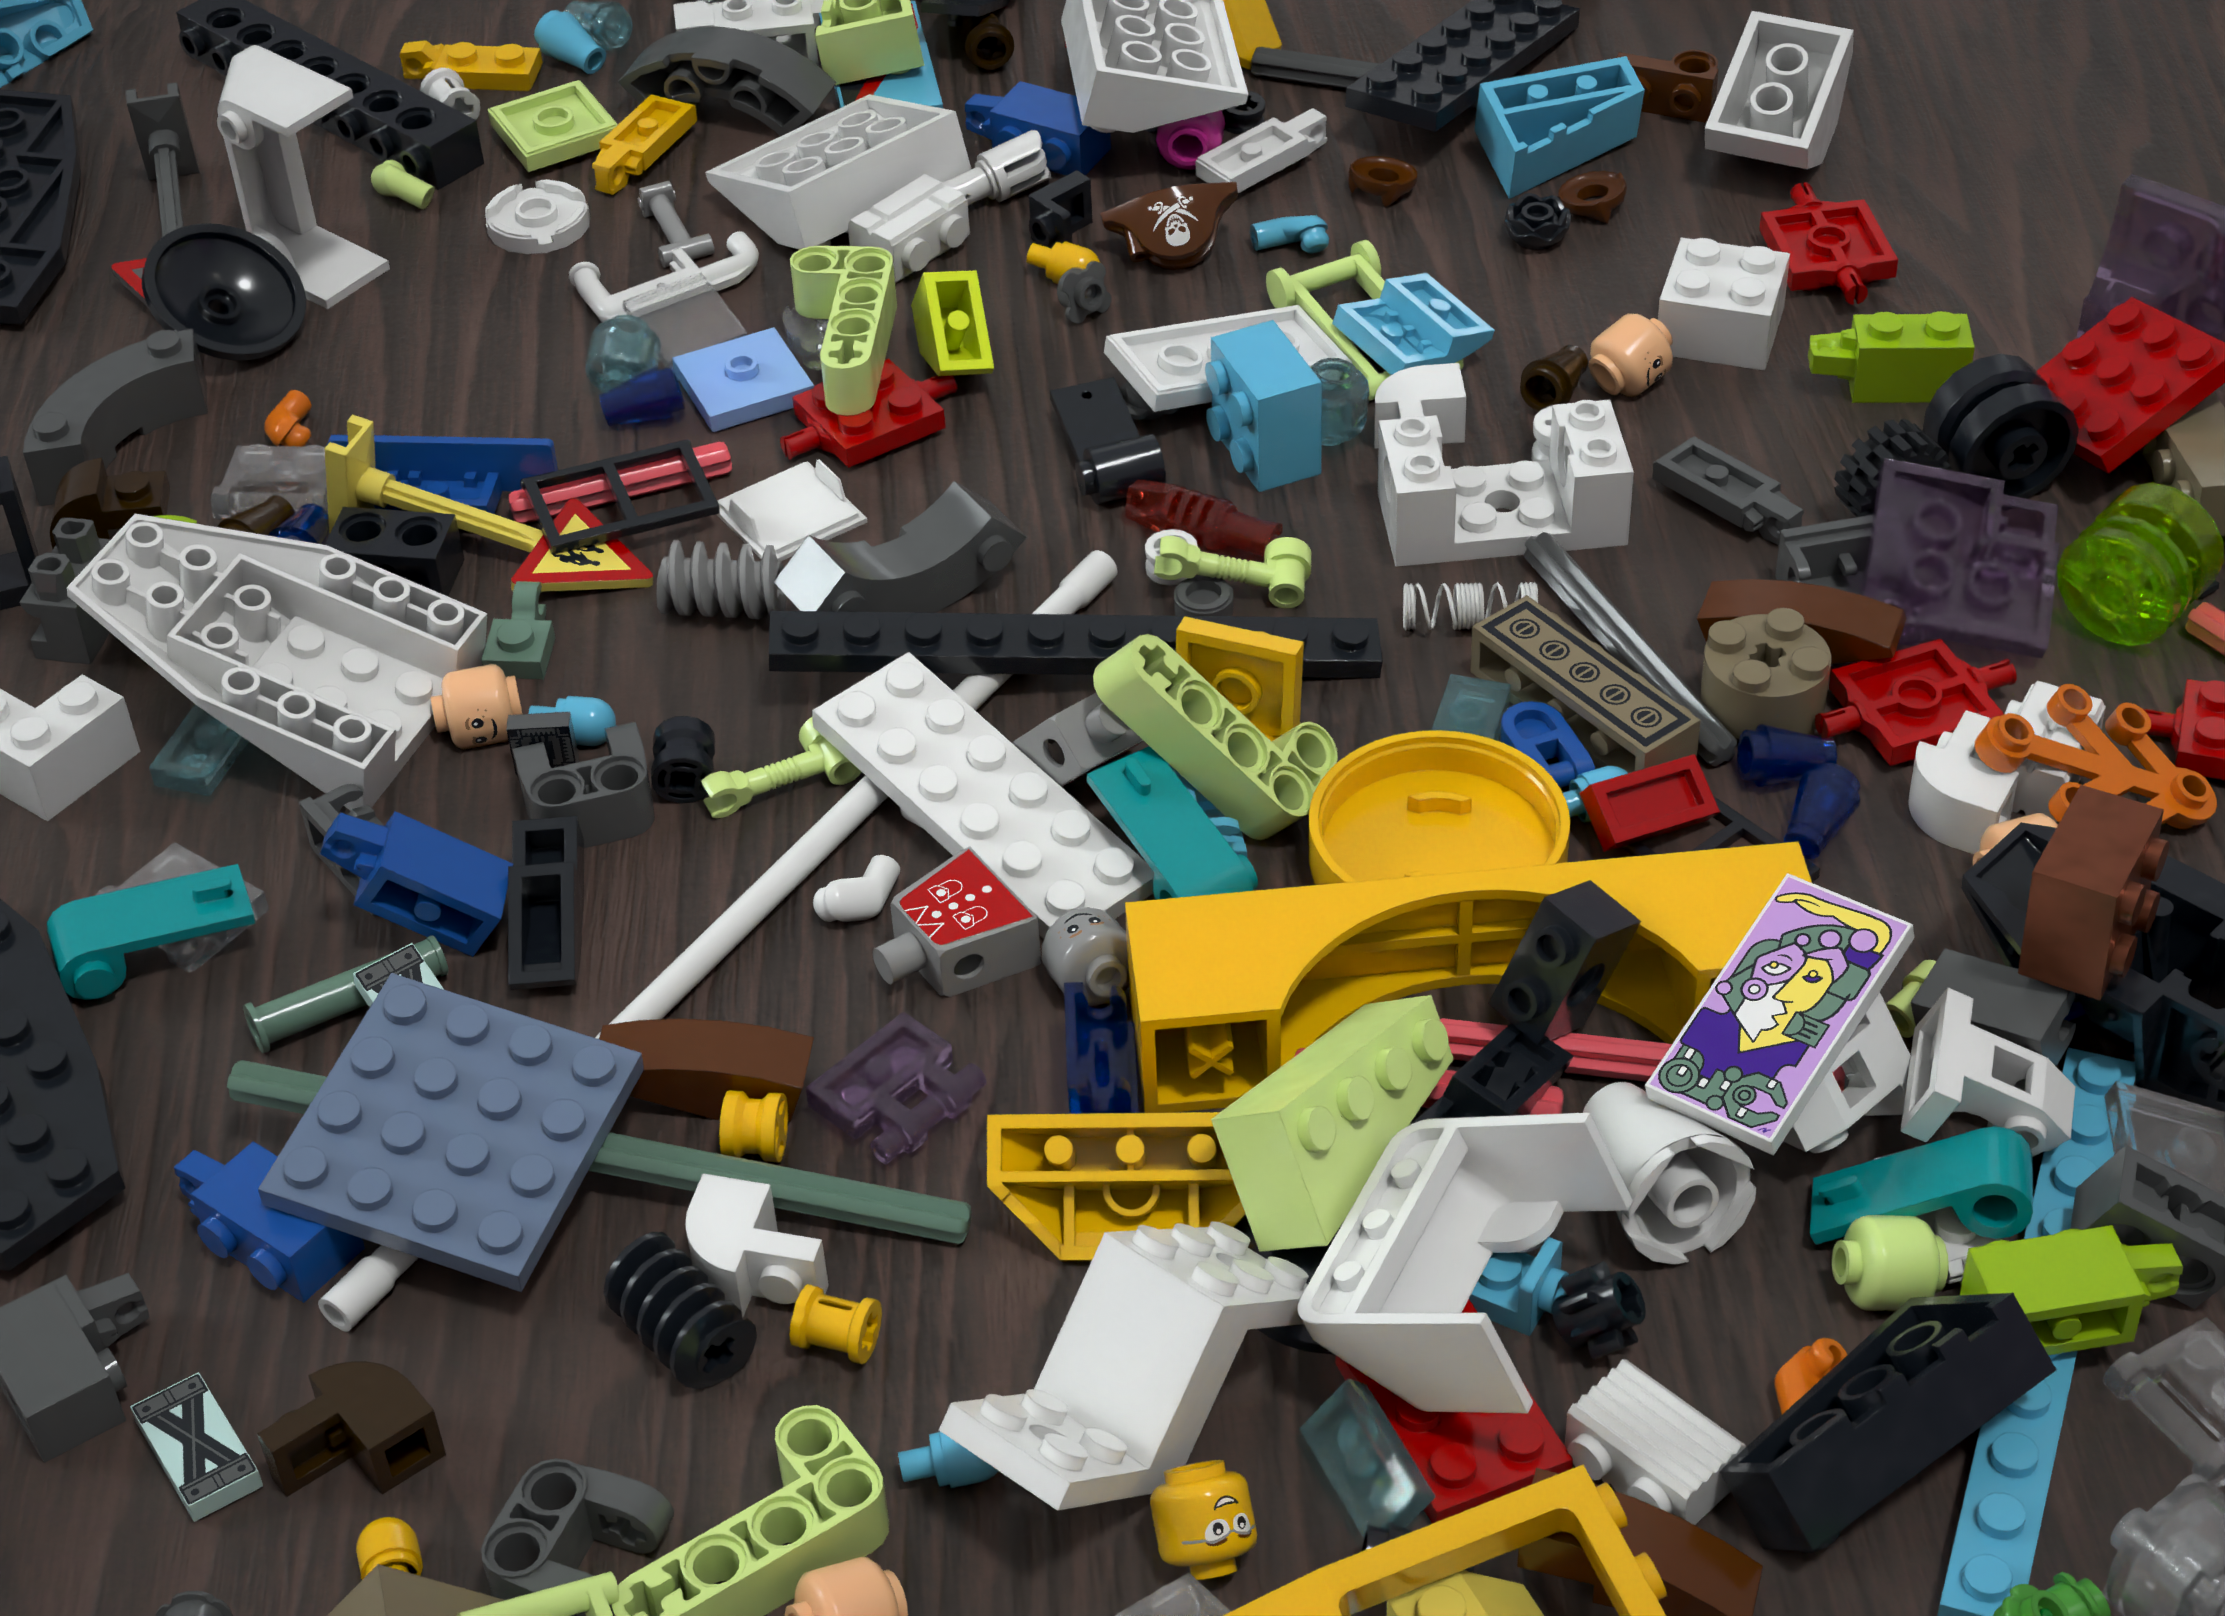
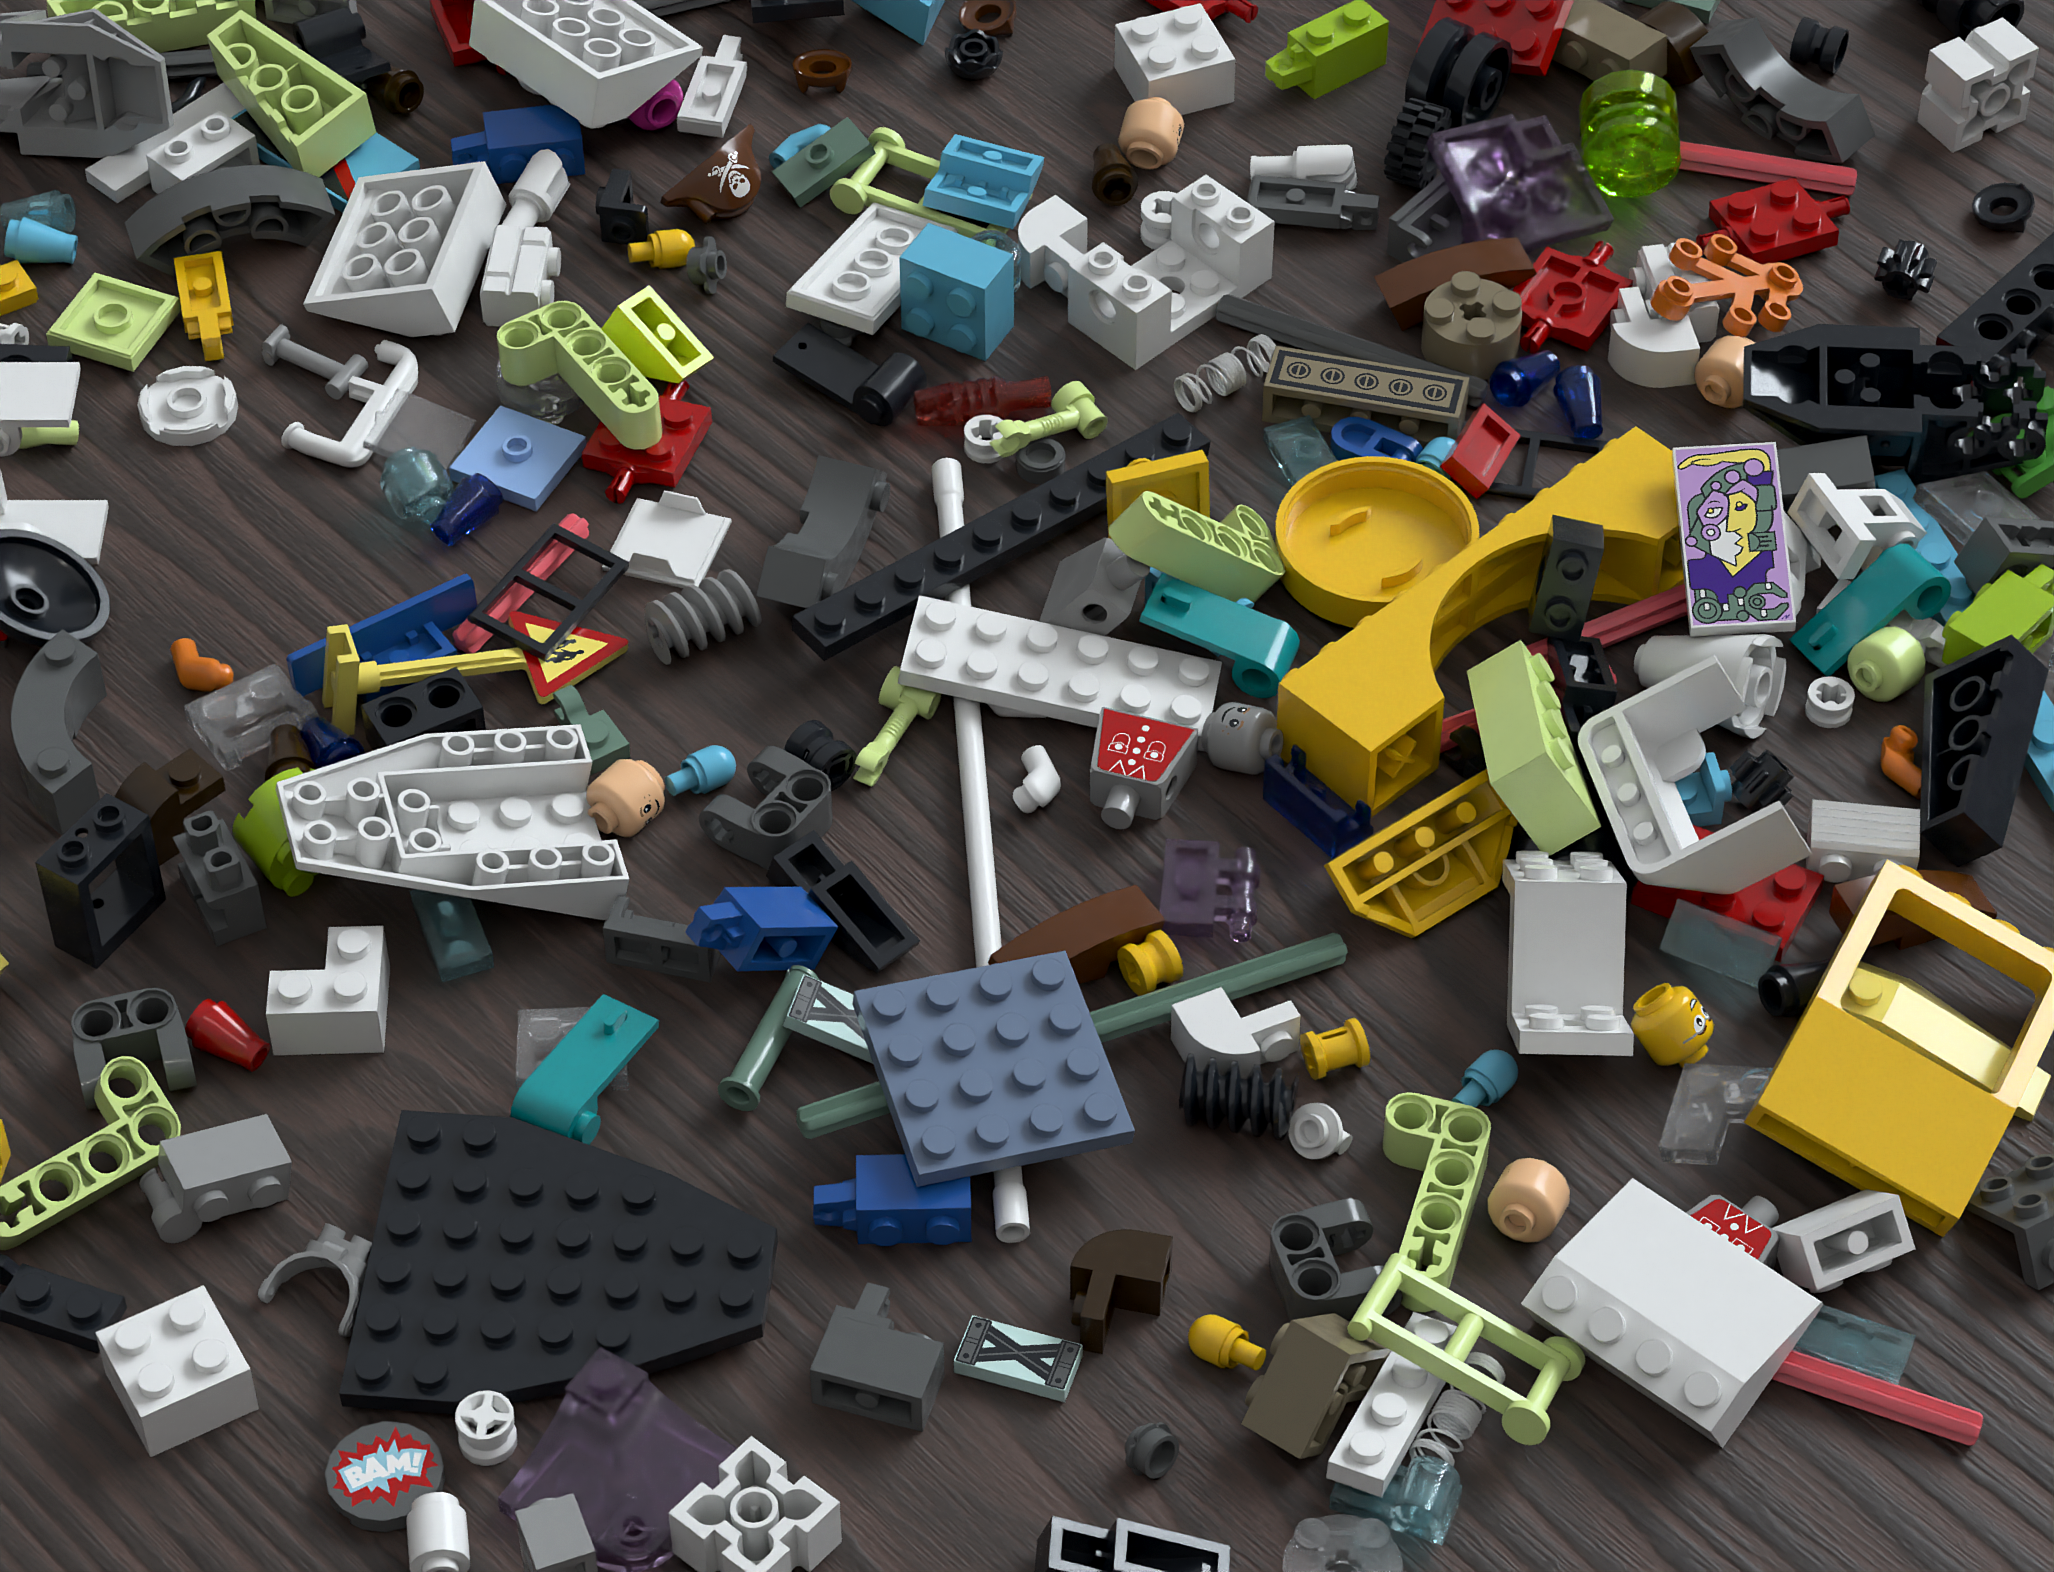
camera: 40 degrees left, 5 degrees up
(550, 728) = (701, 791): tile -> none
(728, 1402) = (1318, 1131): none -> white plate
(1288, 248) = (823, 162): none -> sand green plate
(1767, 451) = (1316, 163): none -> white arm
(1804, 1263) = (1830, 691): none -> white bush
(2093, 892) = (1855, 368): copper brick -> none

